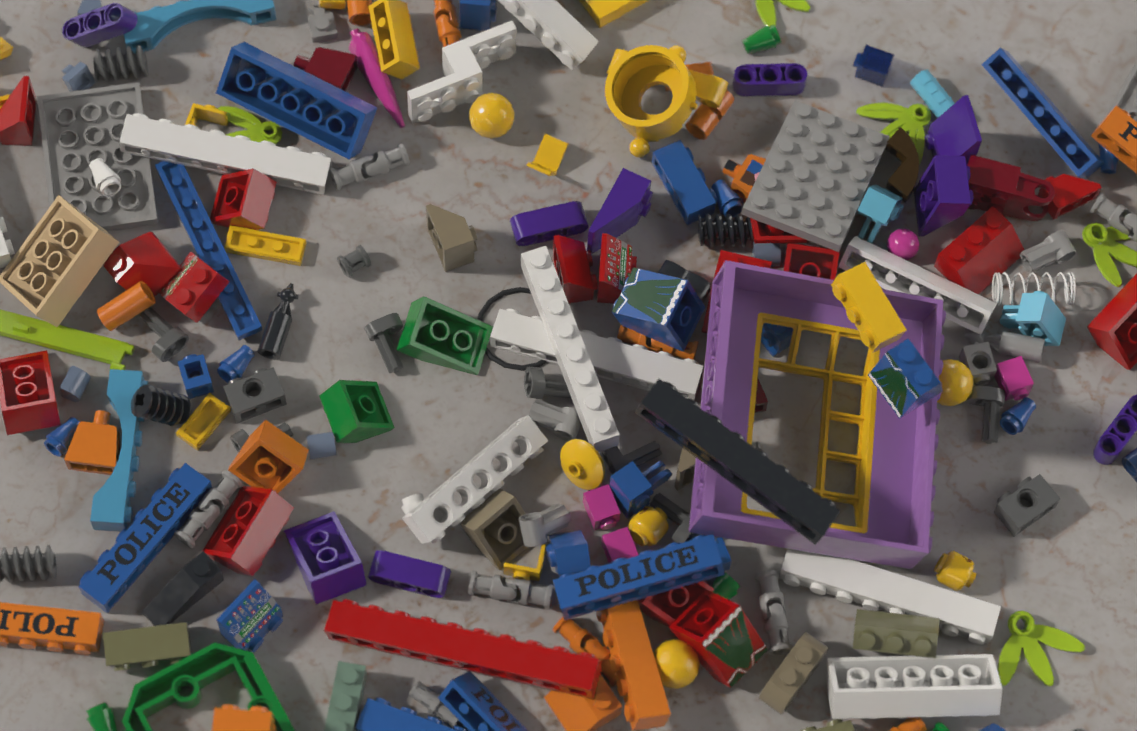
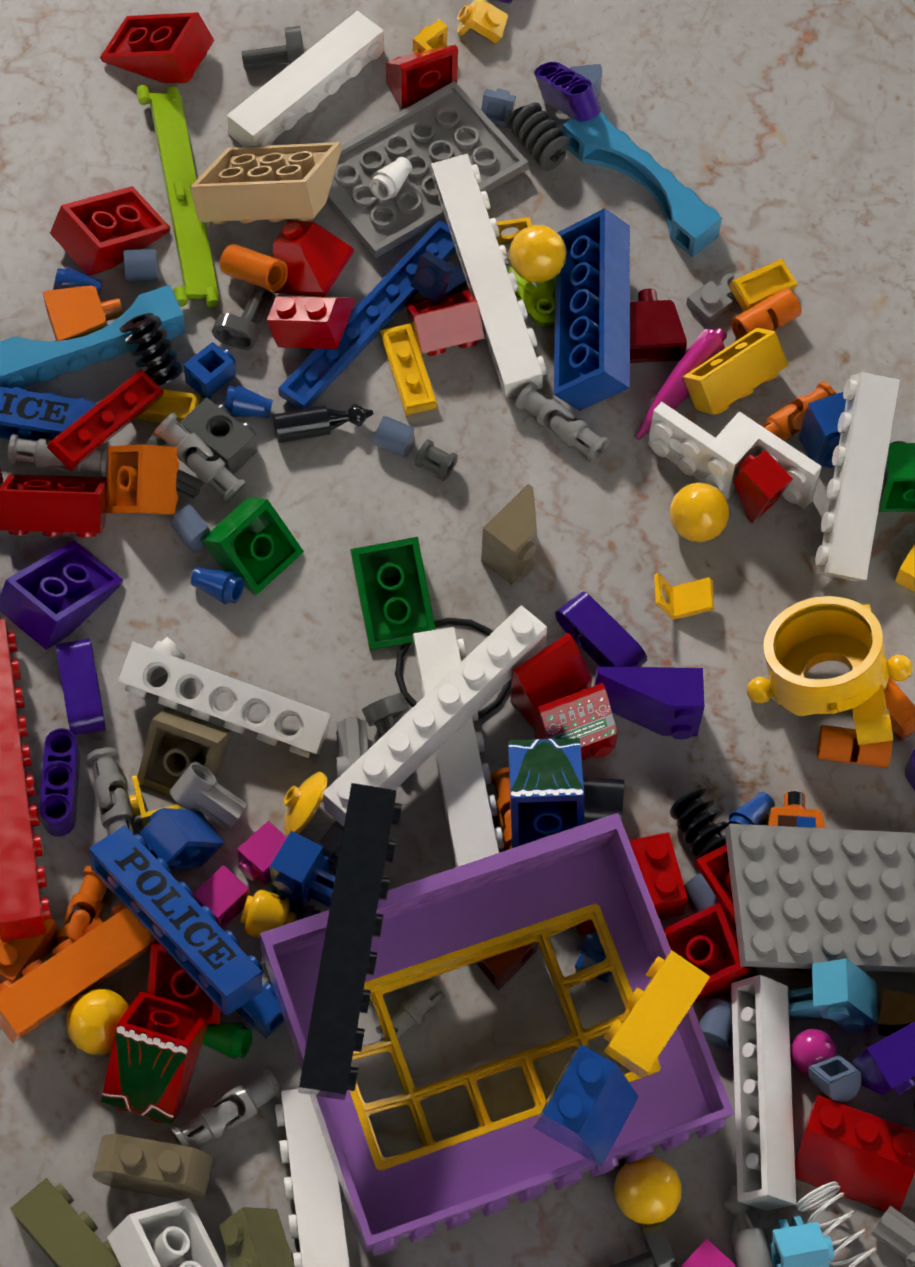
camera: 65 degrees right, 5 degrees down
(204, 462) = (105, 419): none -> red tile
(210, 187) = (437, 277): none -> dark blue bracket
(235, 111) = (537, 253): none -> yellow piece
(274, 412) = (203, 462): none -> light grey piece
(321, 278) = (394, 436): none -> sand blue brick
(376, 447) = (220, 584): none -> blue cone
(379, 332) = (362, 524): dark grey piece -> none
(471, 607) = (56, 767): none -> dark purple beam
(498, 65) = (760, 484): none -> red slope
(684, 181) = (744, 758): blue brick -> none
(931, 238) = (836, 1078): none -> sand blue brick
(981, 354) = (710, 1207): light grey brick -> none

